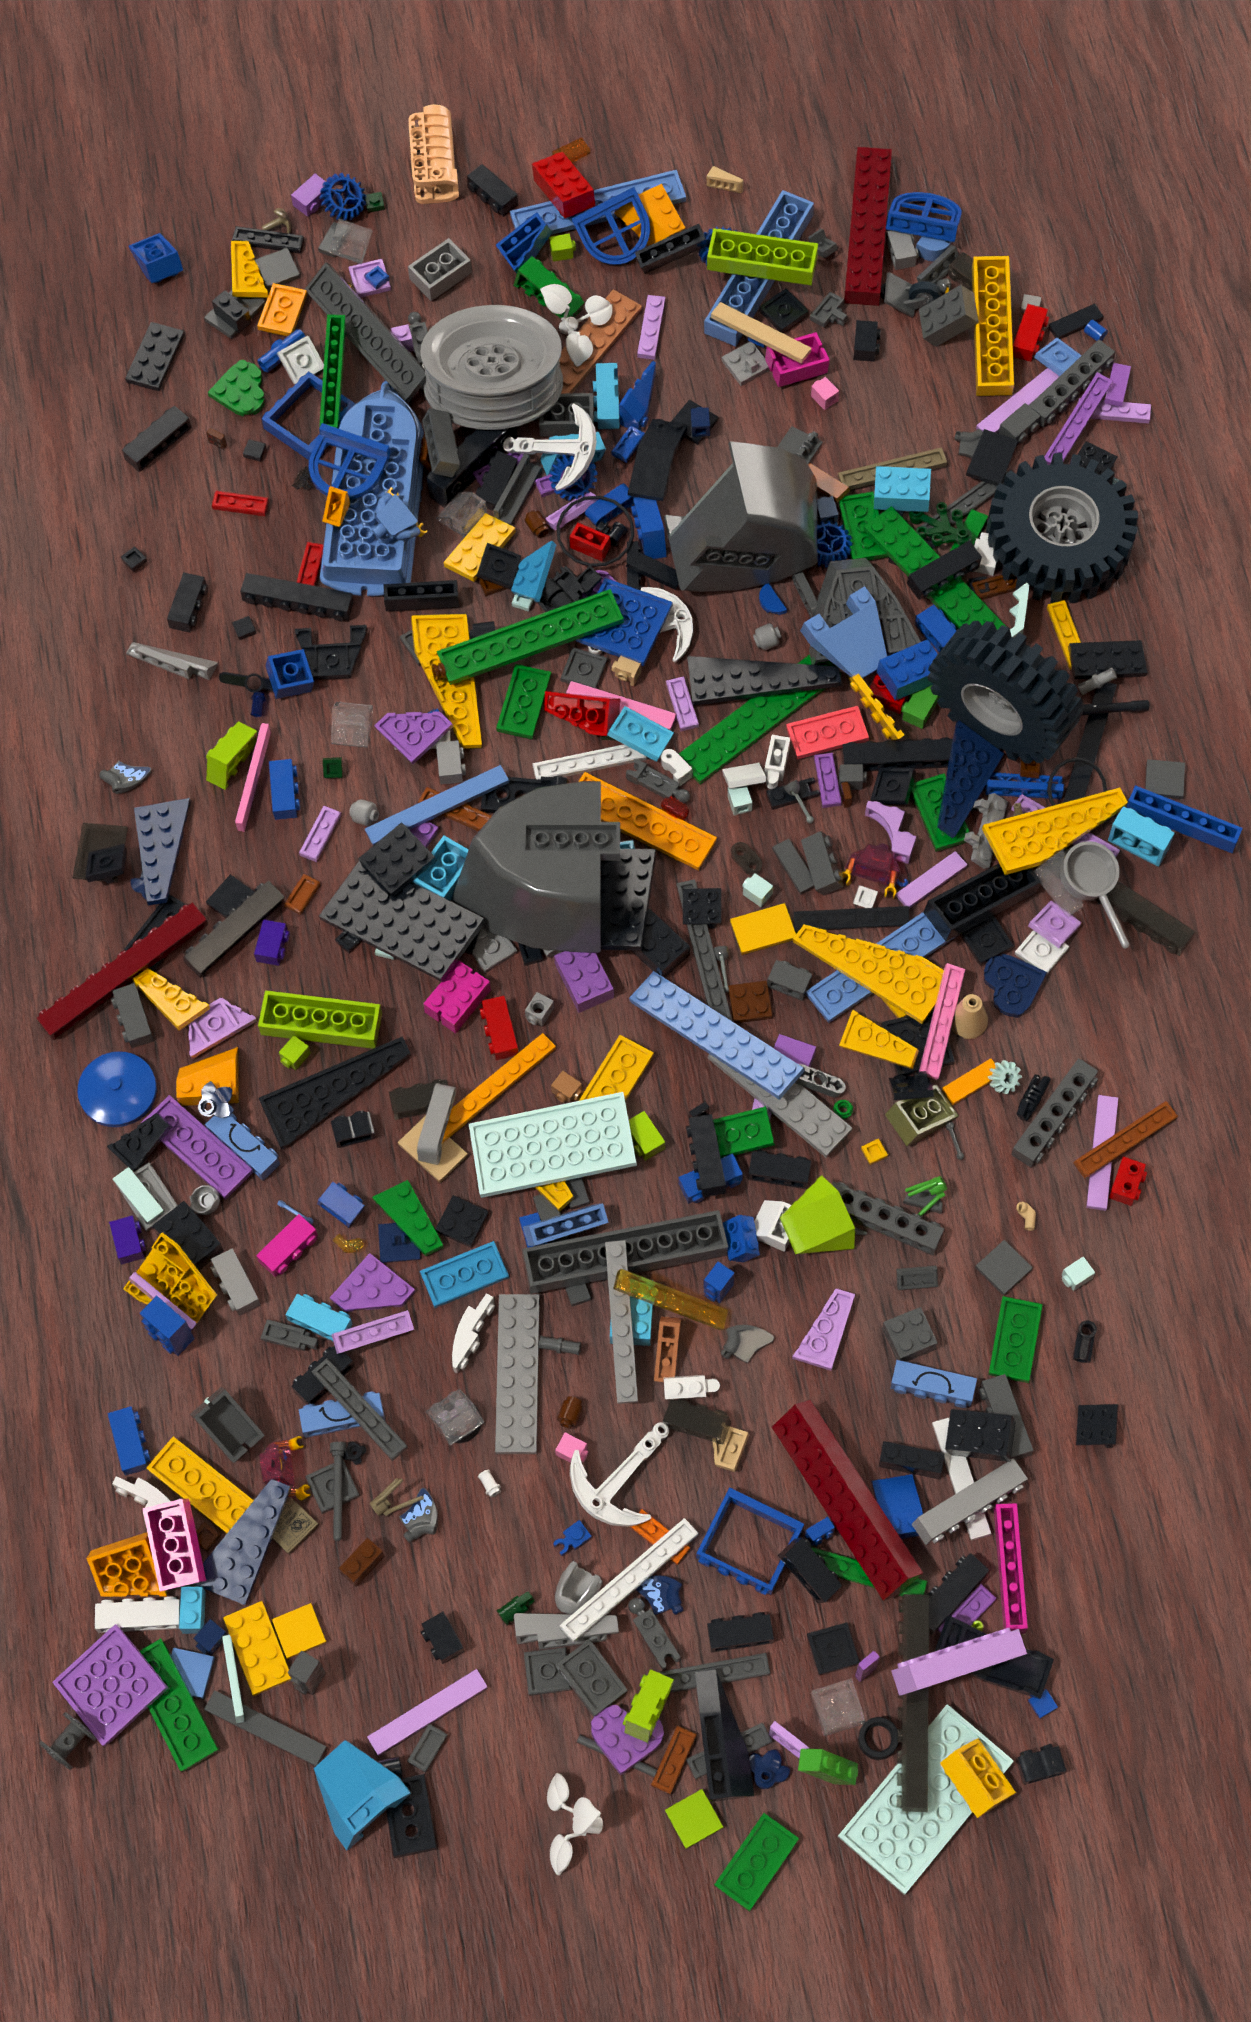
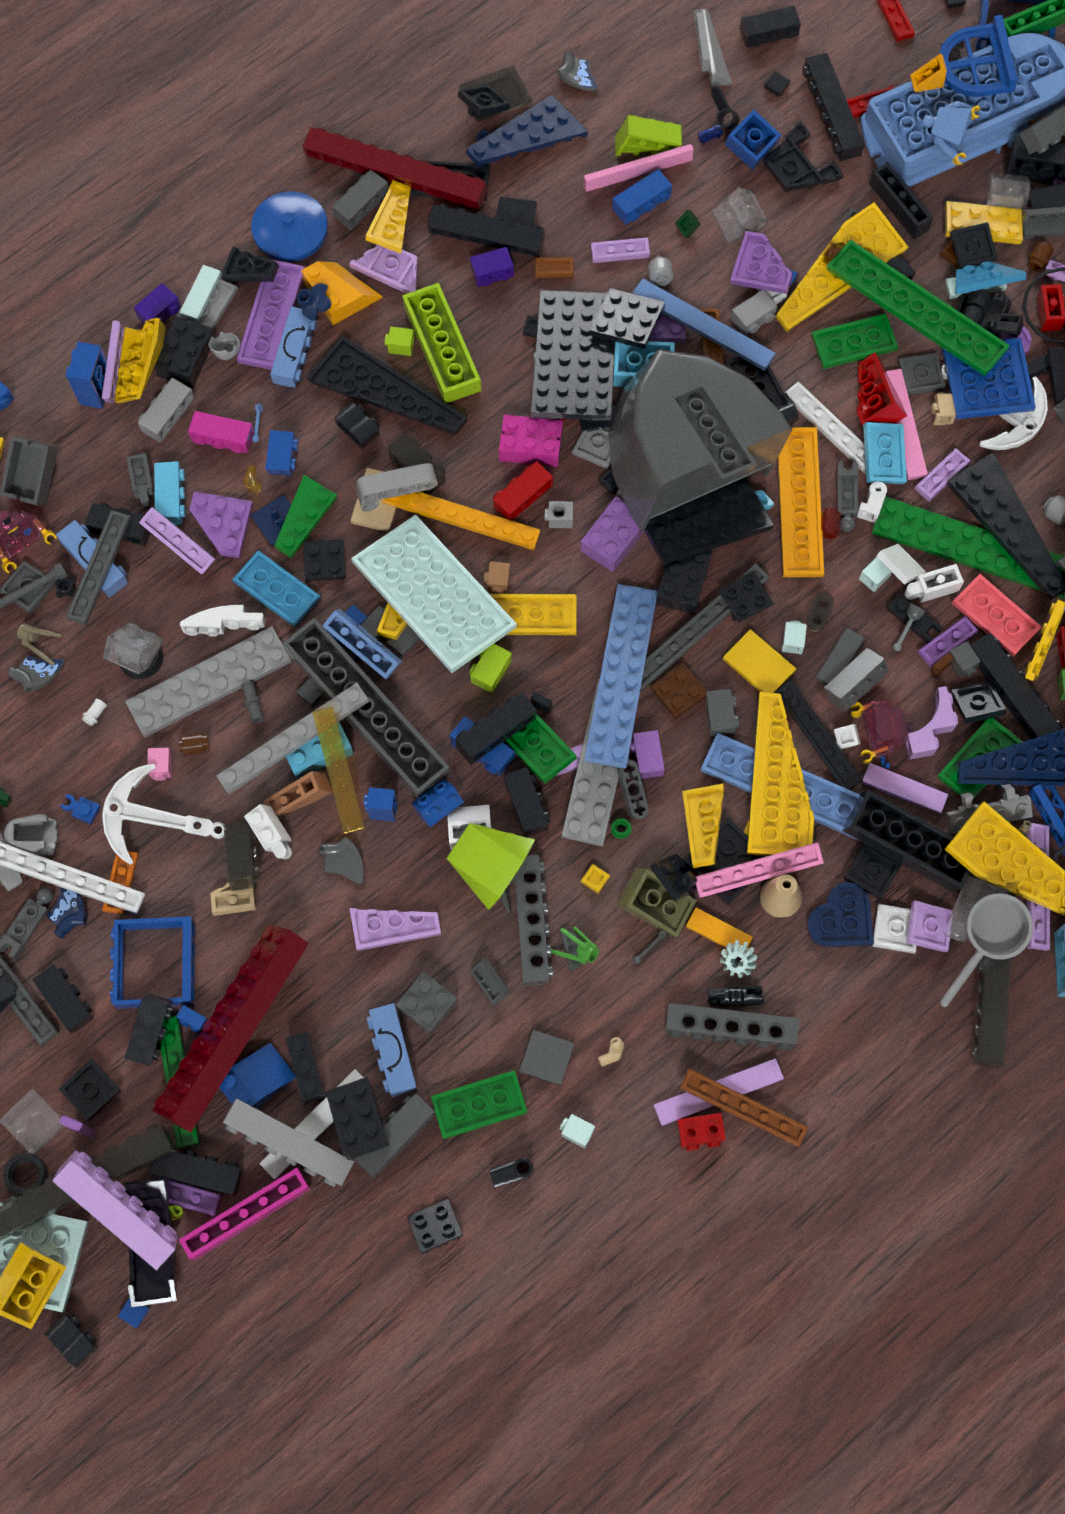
camera: 60 degrees right, 5 degrees up
(721, 954) = (709, 640): hinge -> none

